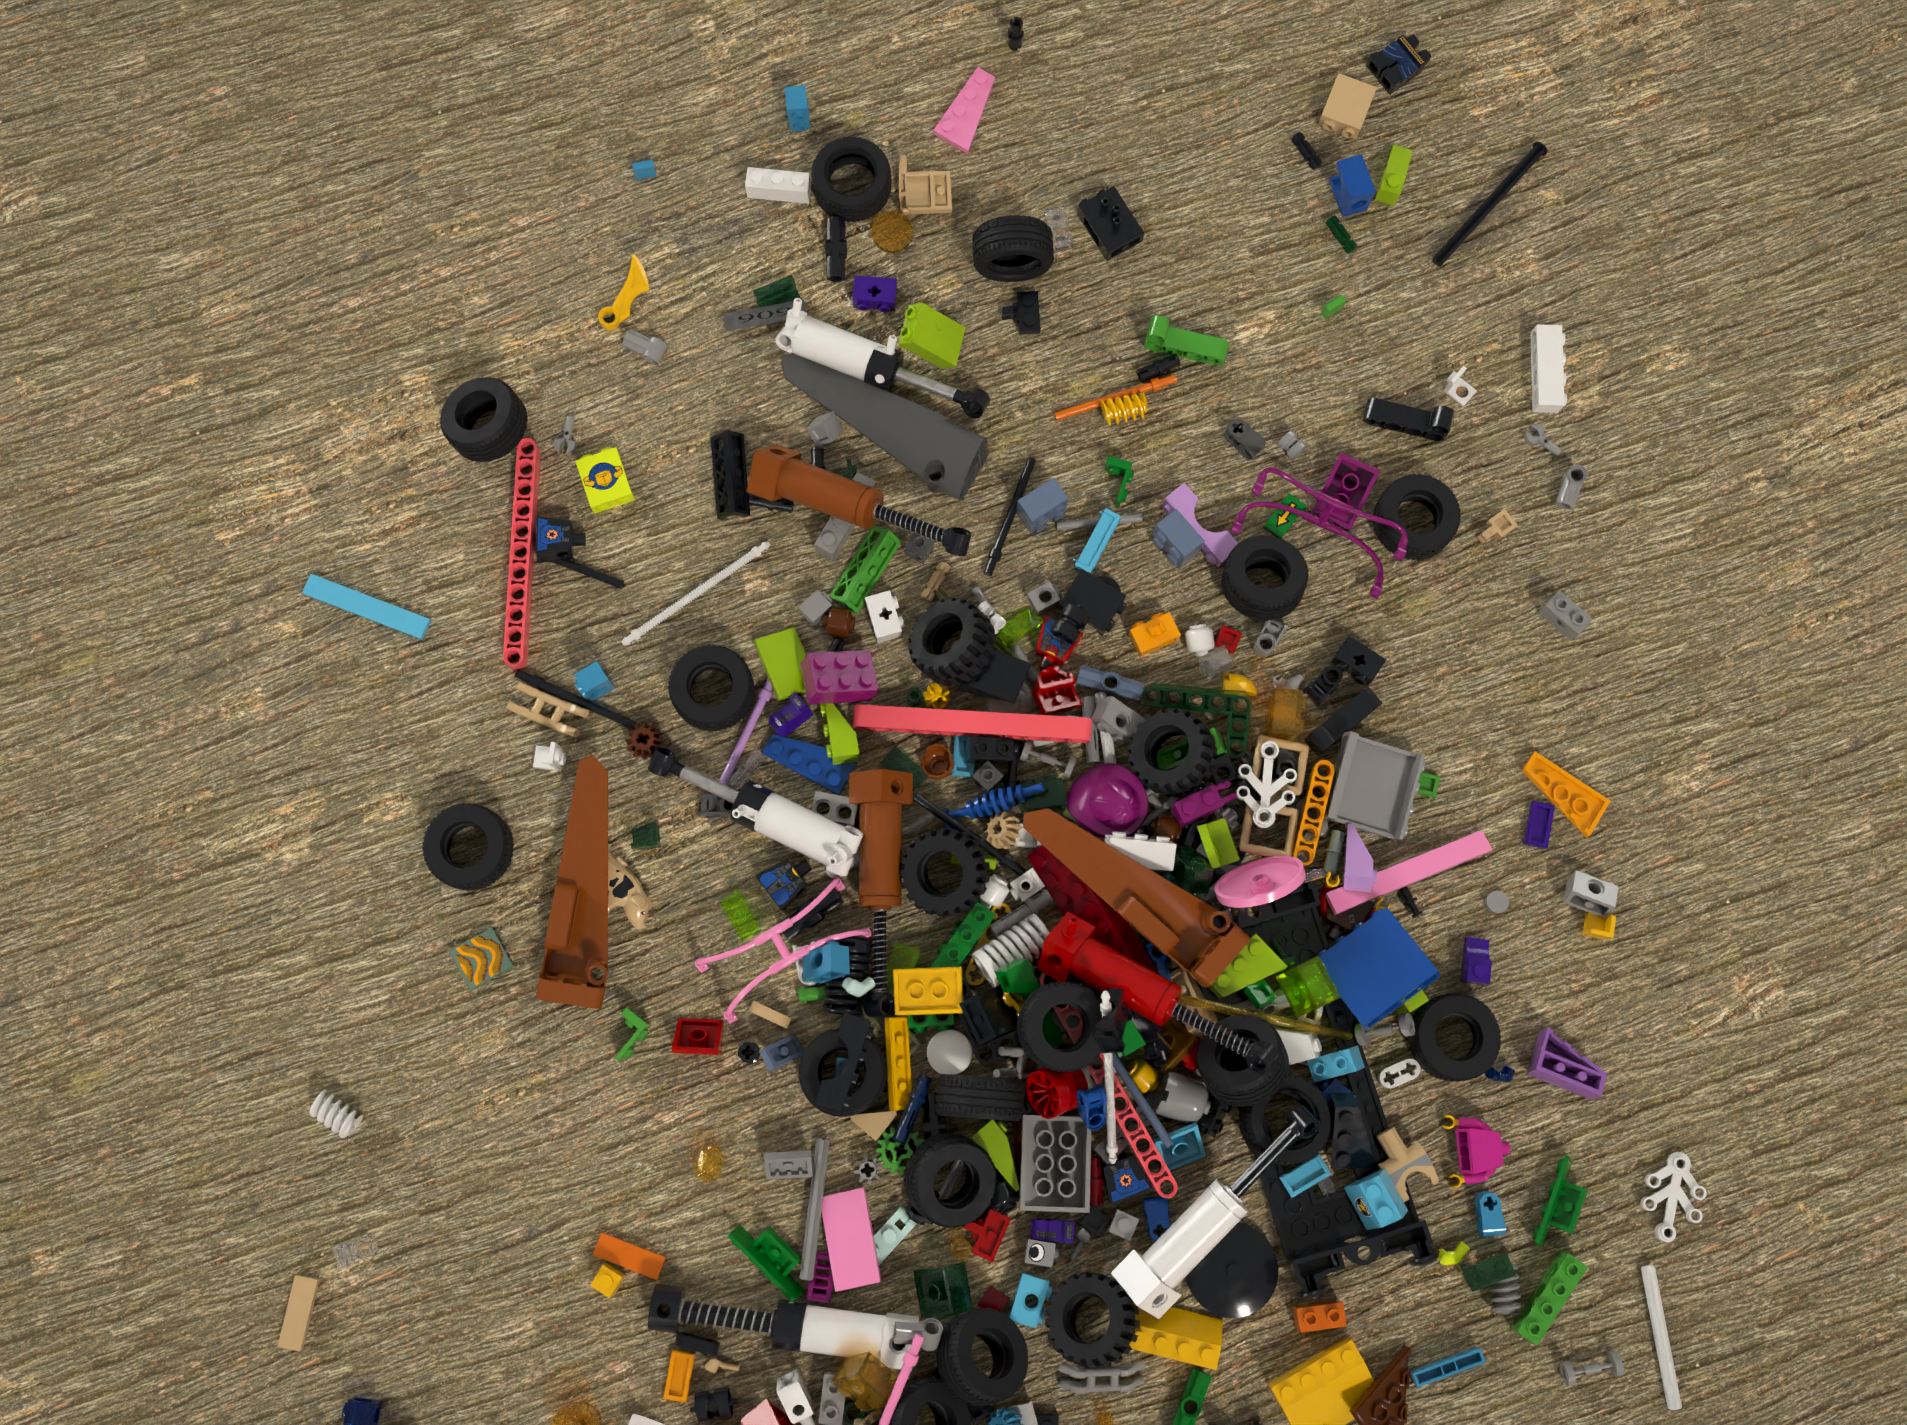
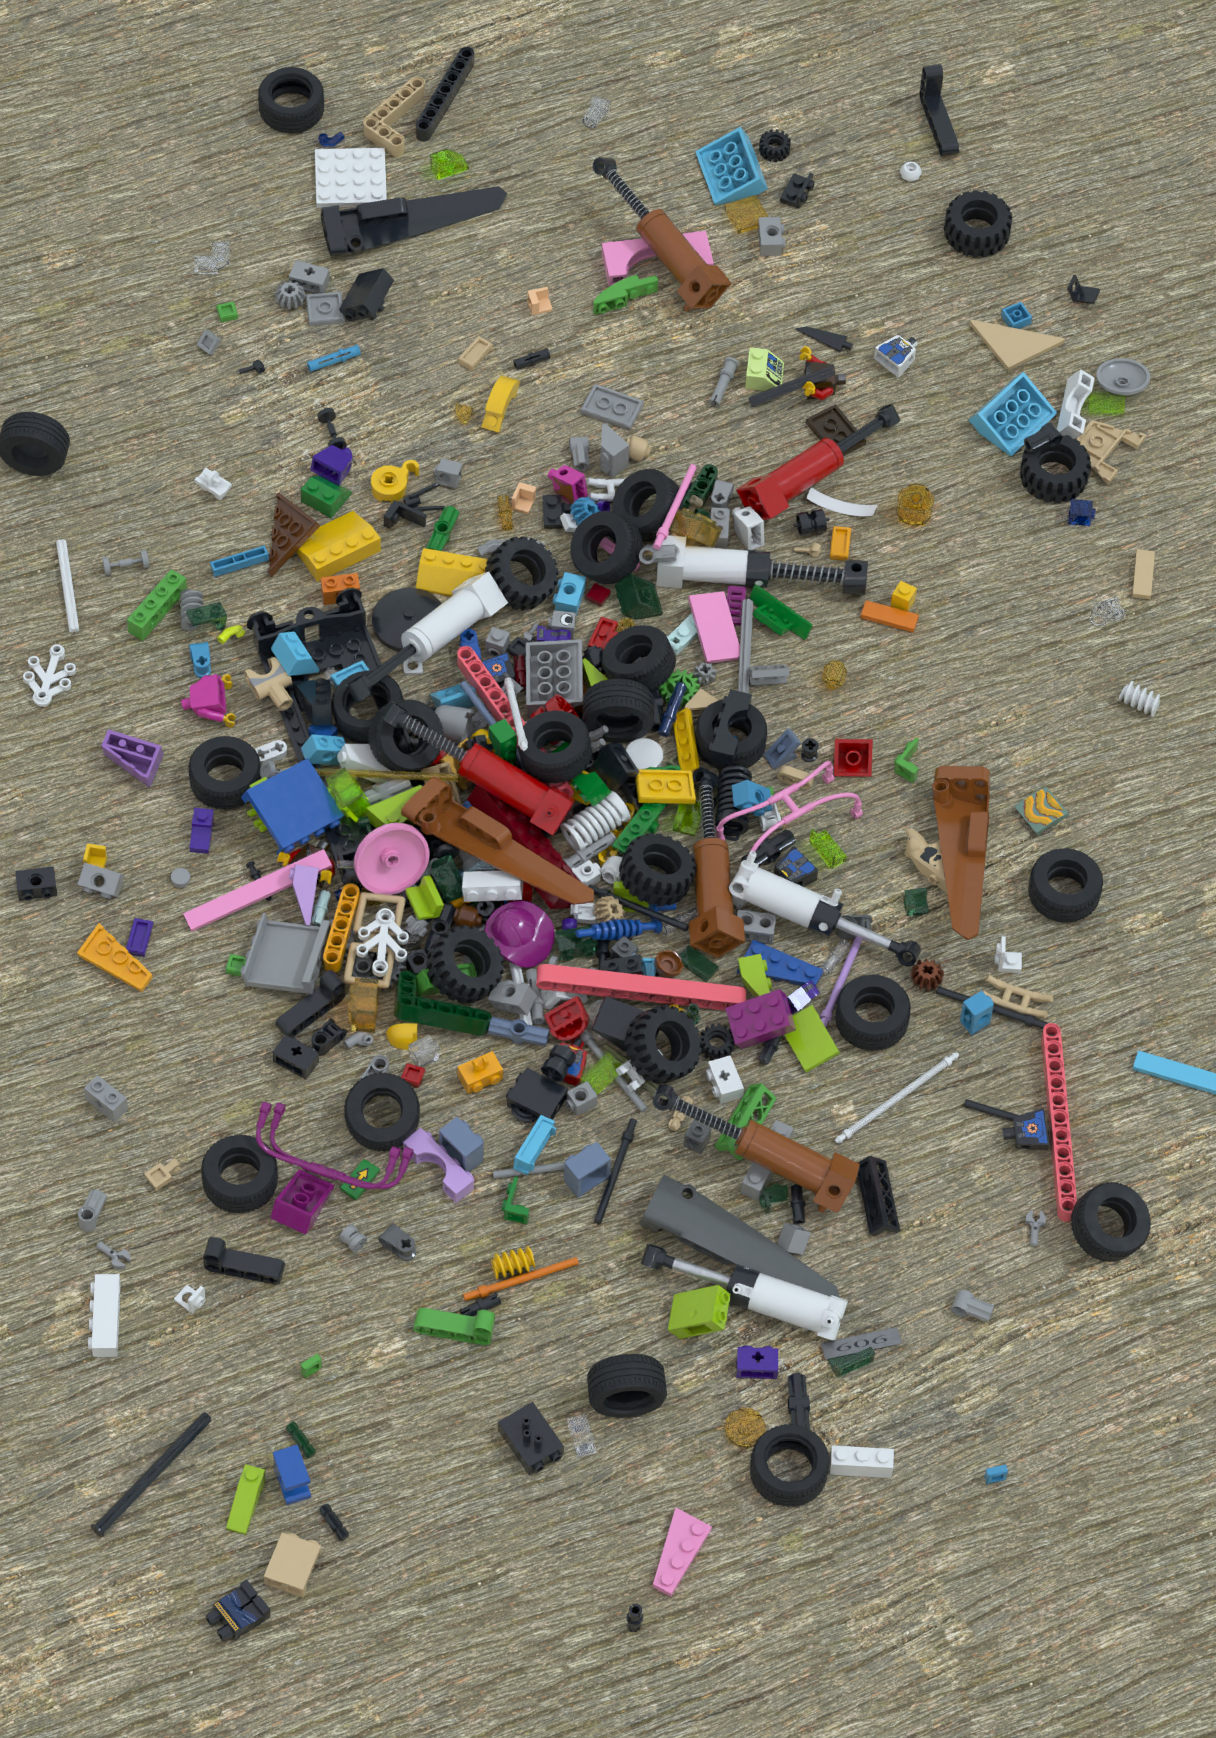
camera: 175 degrees right, 20 degrees down
(604, 480) = (994, 1185): neon yellow panel -> none
(635, 285) = (991, 1366): yellow piece -> none
(697, 1343) = (828, 559): black beam -> none
(797, 108) = (850, 1532): dark azure brick -> none
(815, 607) = (787, 1084): light grey brick -> none
(839, 622) = (765, 1071): reddish brown head -> none
(858, 988) = (723, 781): light aqua arm -> none
(902, 659) = (717, 1032): none -> black tyre
(923, 191) = (716, 1461): tan piece -> none
(1024, 312) = (607, 1347): black hinge -> none
(1092, 1106) = (527, 701): blue piece -> none
(1111, 1028) = (516, 726): black piece -> none
(1199, 639) = (439, 1069): white head -> none
(1201, 804) = (437, 924): magenta hinge -> none
(1260, 993) = (388, 788): green plate -> none
(1504, 1076) = (184, 753): clear blue arm -> none
(1563, 1206) = (139, 666): green bracket -> none
(1650, 894) = (27, 878): none -> black brick

